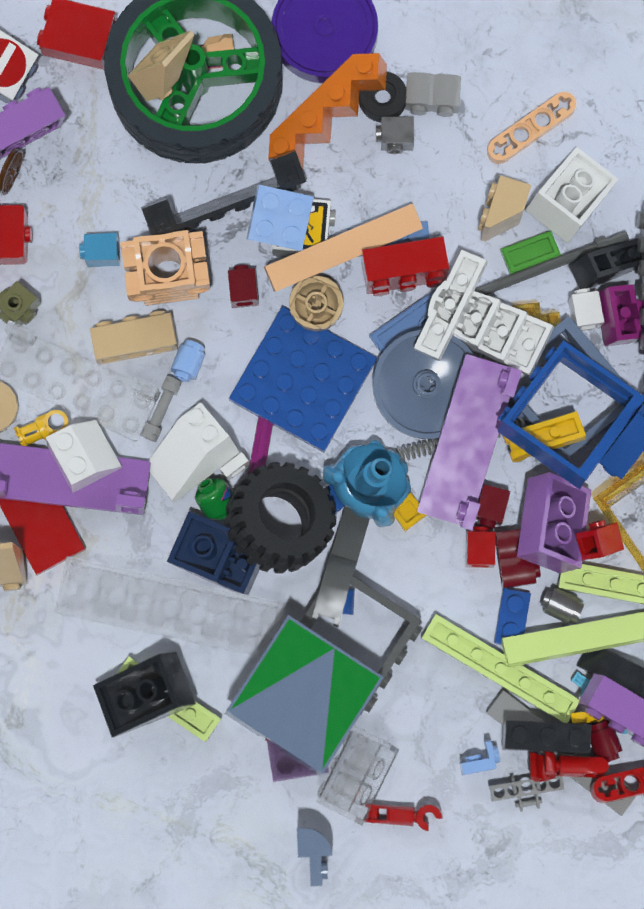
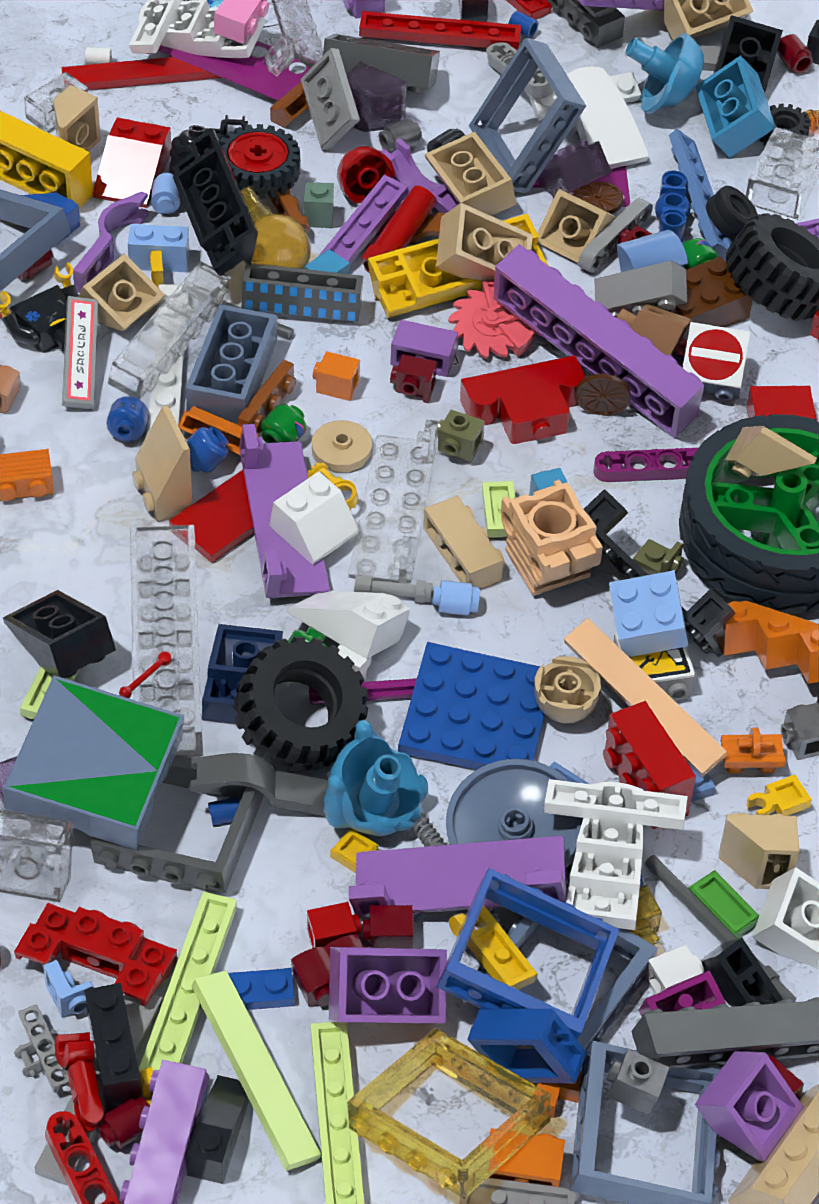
camera: 70 degrees right, 30 degrees down
(88, 155) = (650, 458): none -> magenta beam
(102, 296) = (492, 501): none -> yellowish green plate
(192, 186) = (657, 558): none -> olive bracket
(230, 653) = (164, 659): none -> red hinge
(243, 287) = (556, 623): dark red brick -> none
(407, 181) = (753, 751): none -> orange hips
(448, 724) = (101, 946): none -> red bracket
(451, 174) = (783, 796): none -> yellow plate
(562, 606) = (288, 1035): flat silver brick -> none
(599, 540) = (381, 1034): red brick -> none

